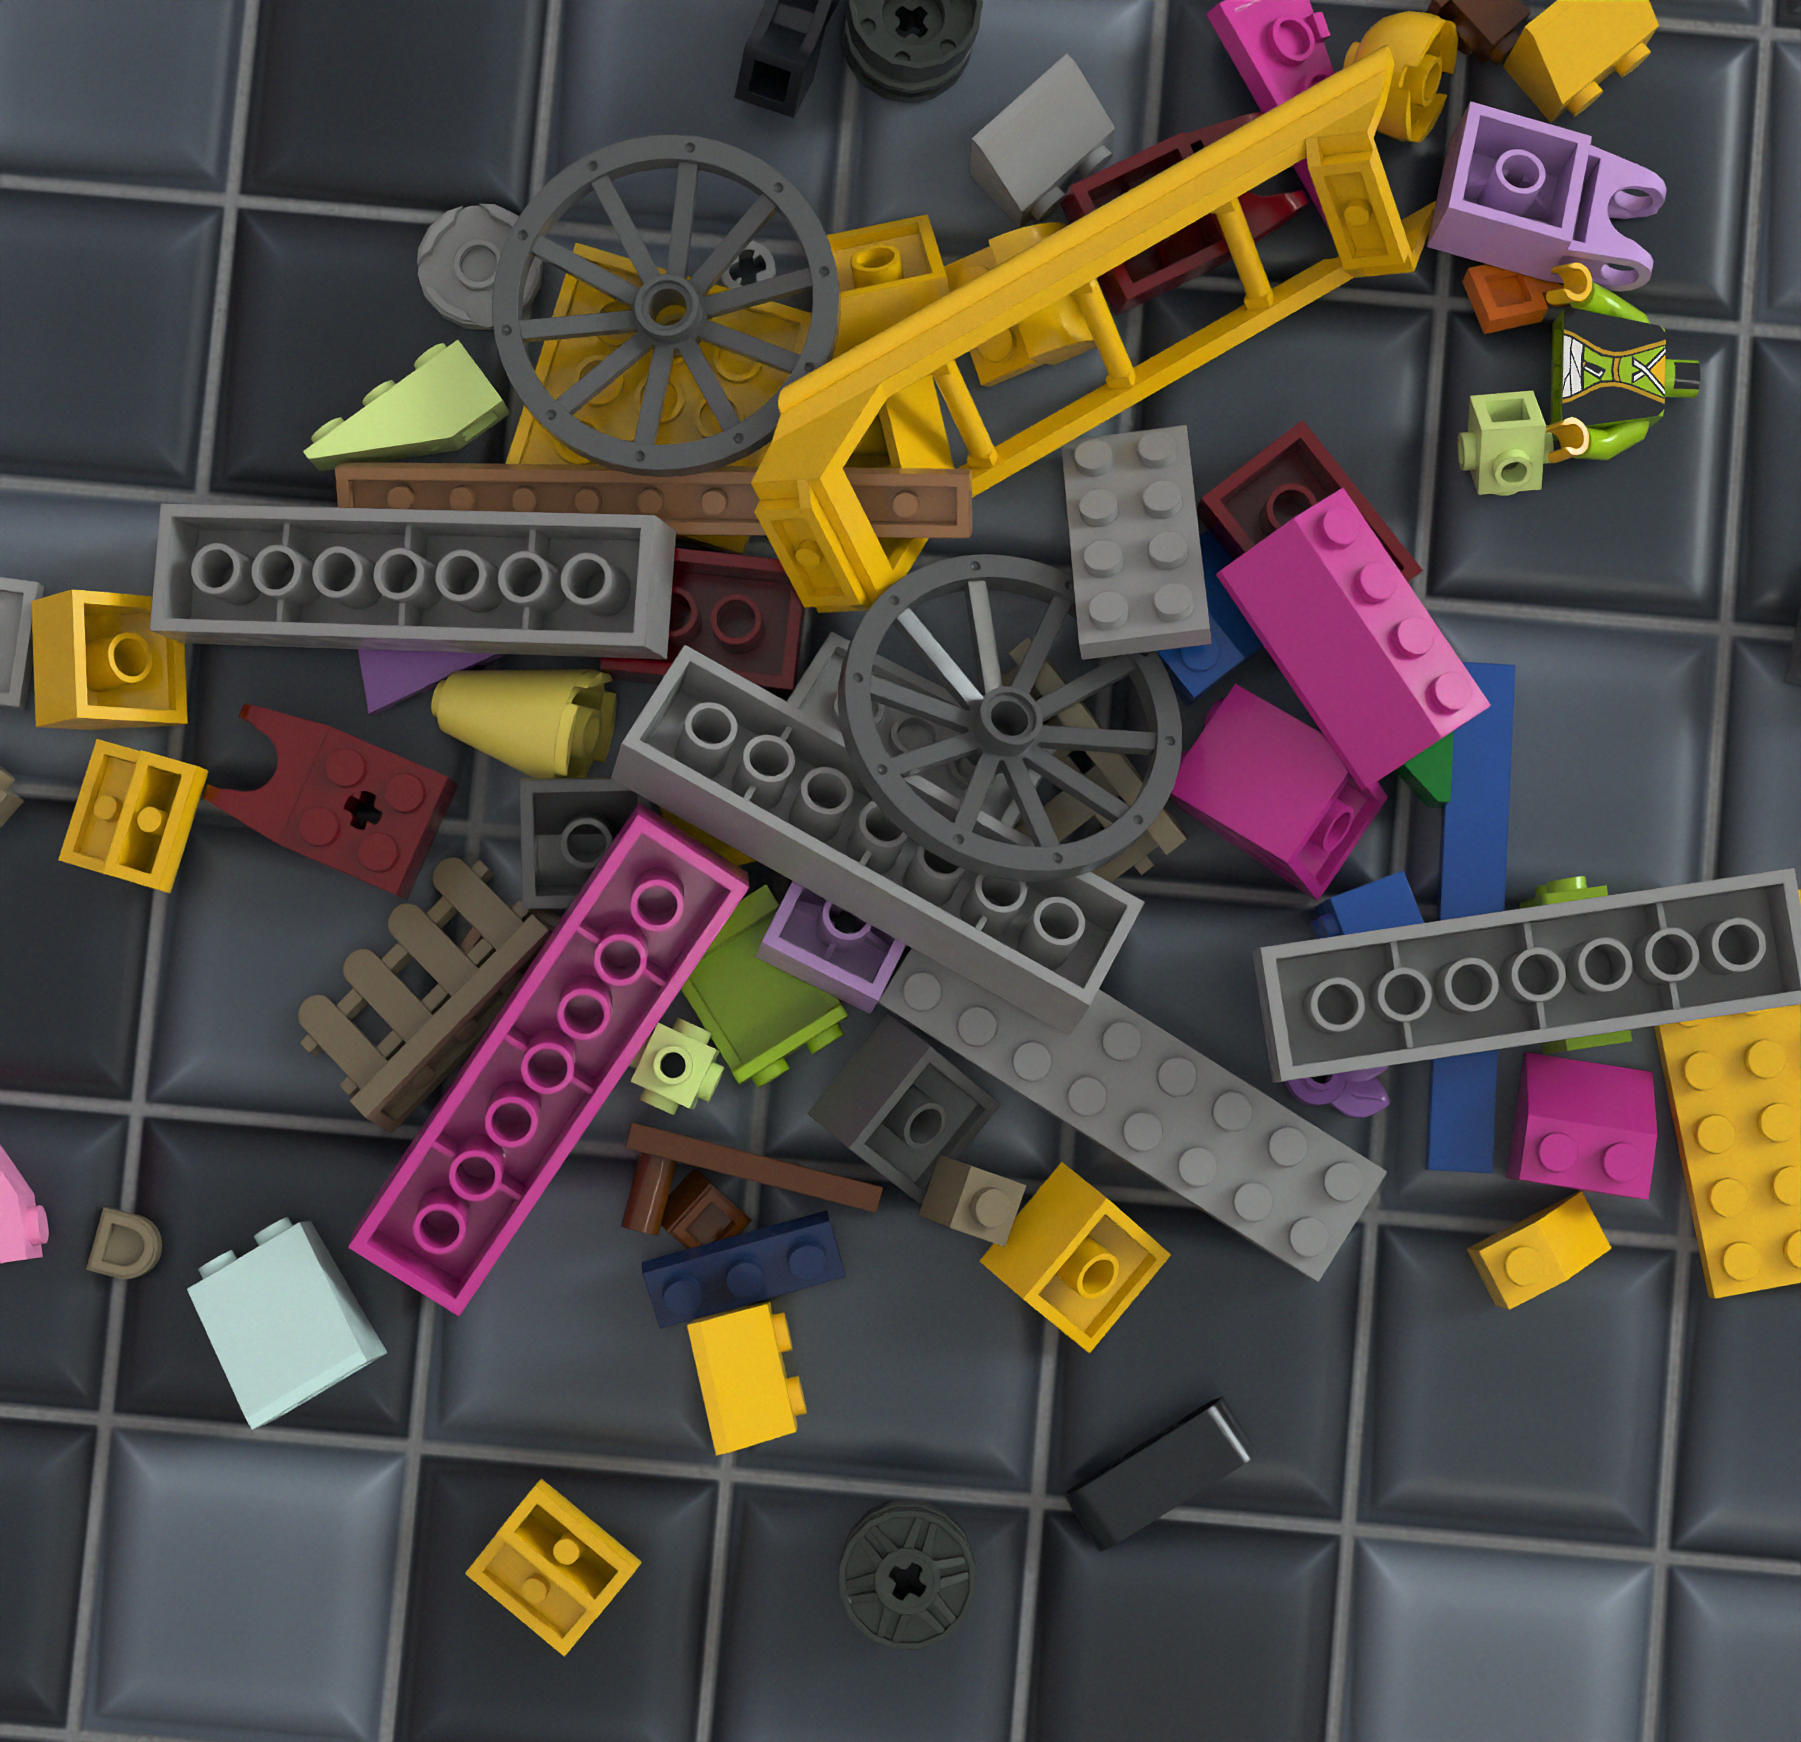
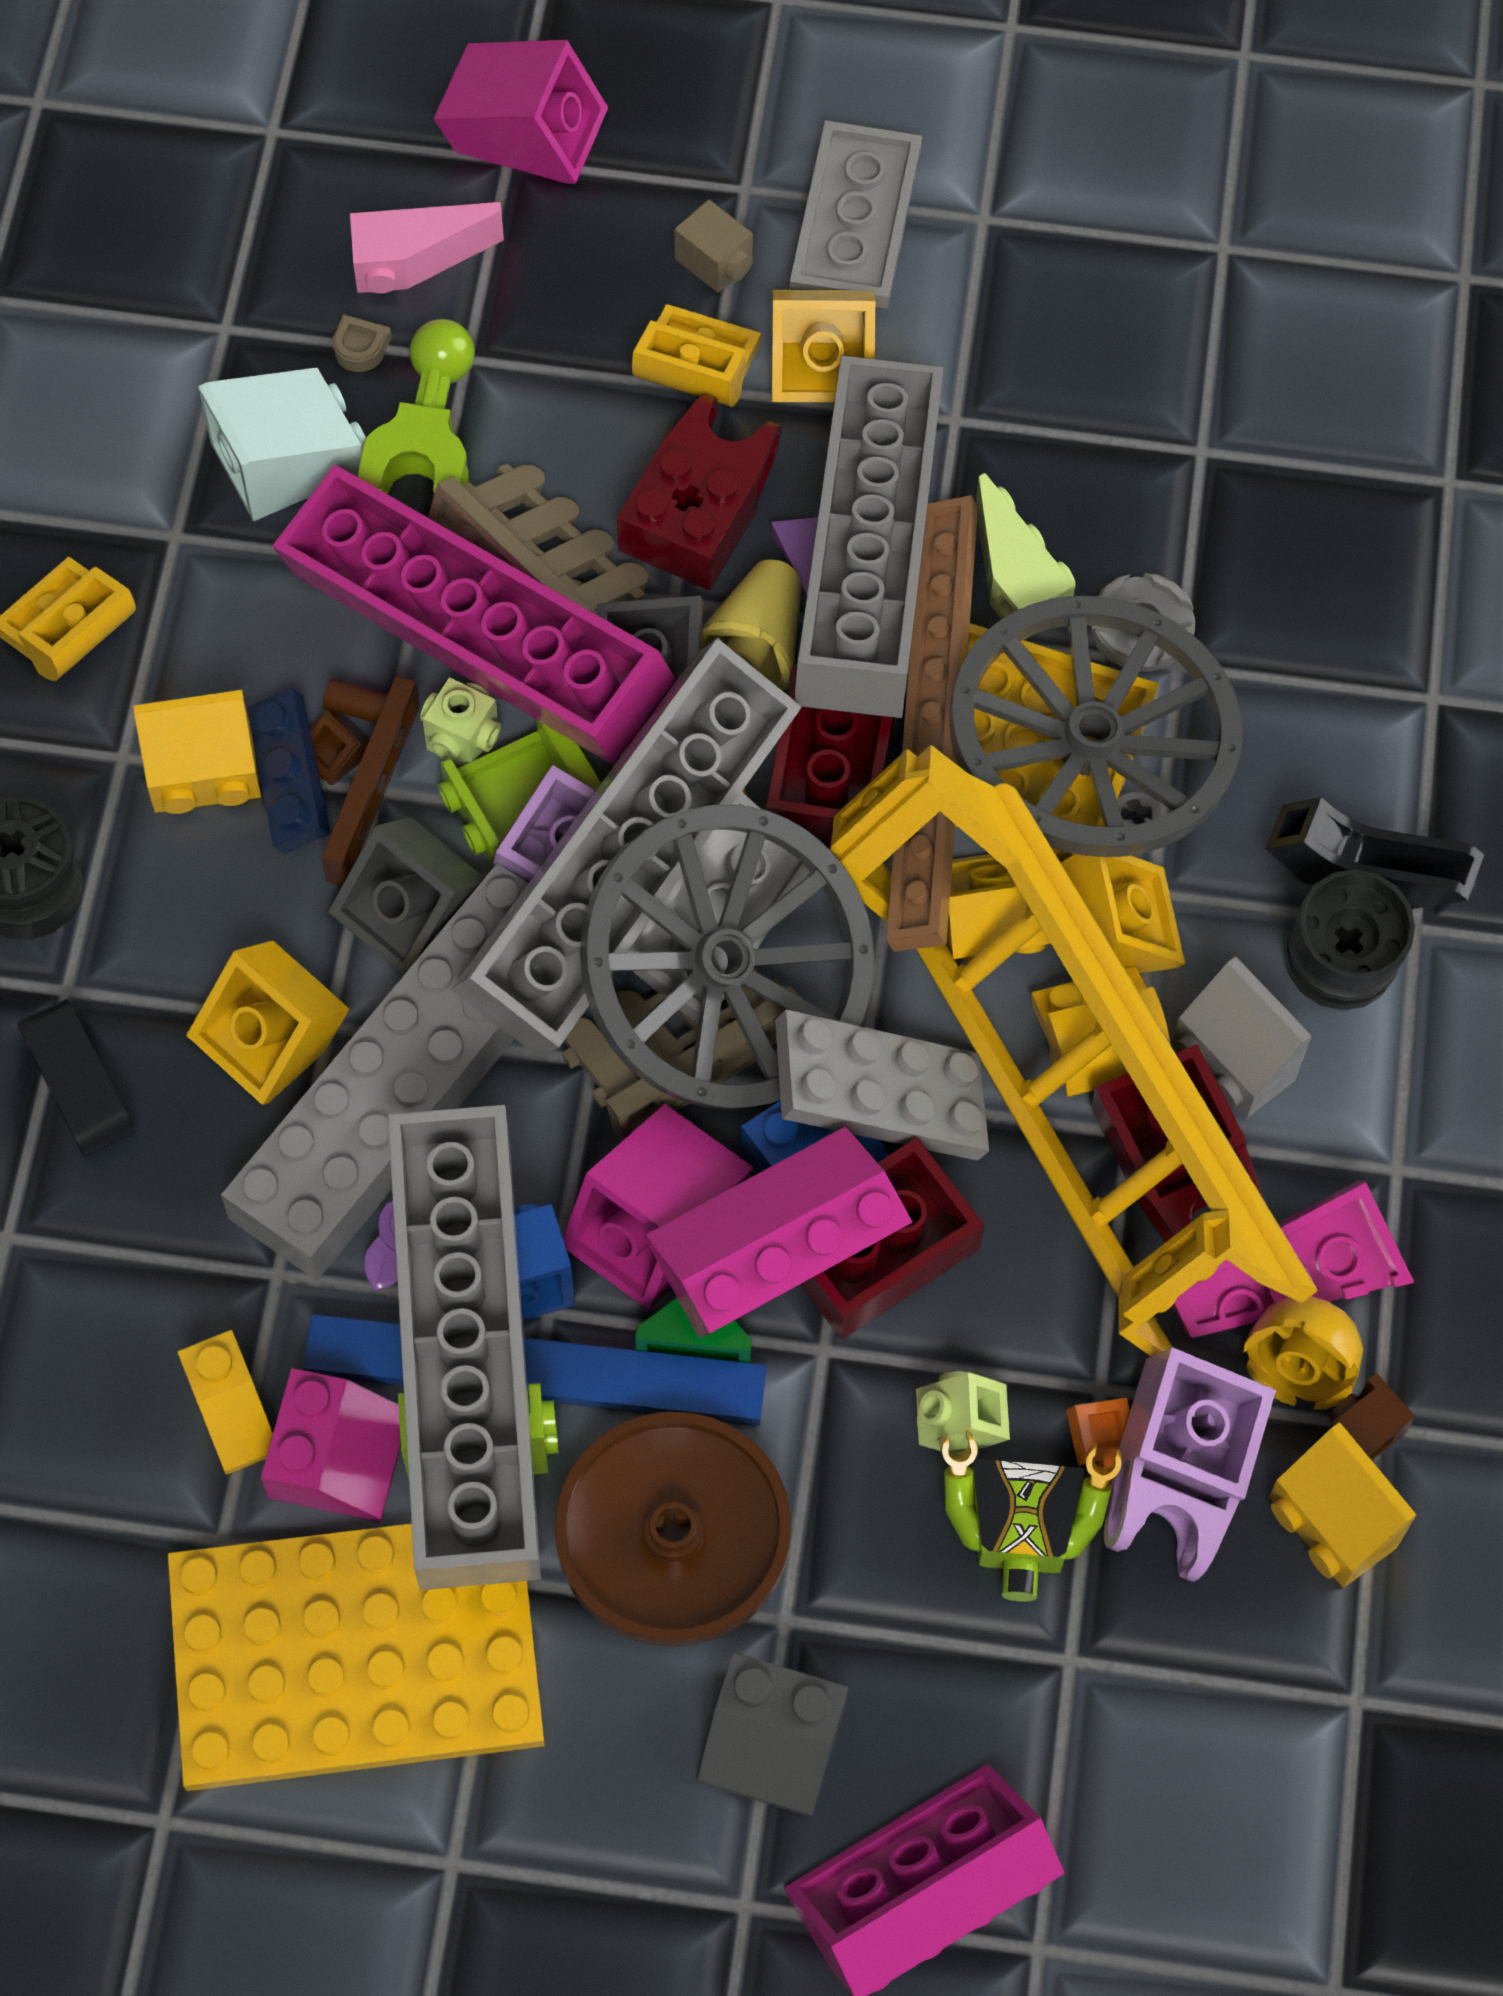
camera: 90 degrees right, 20 degrees down
(272, 1150) = (422, 433): none -> lime piece
(972, 1200) = (324, 936): dark tan brick -> none
(1658, 748) = (673, 1529): none -> reddish brown dish

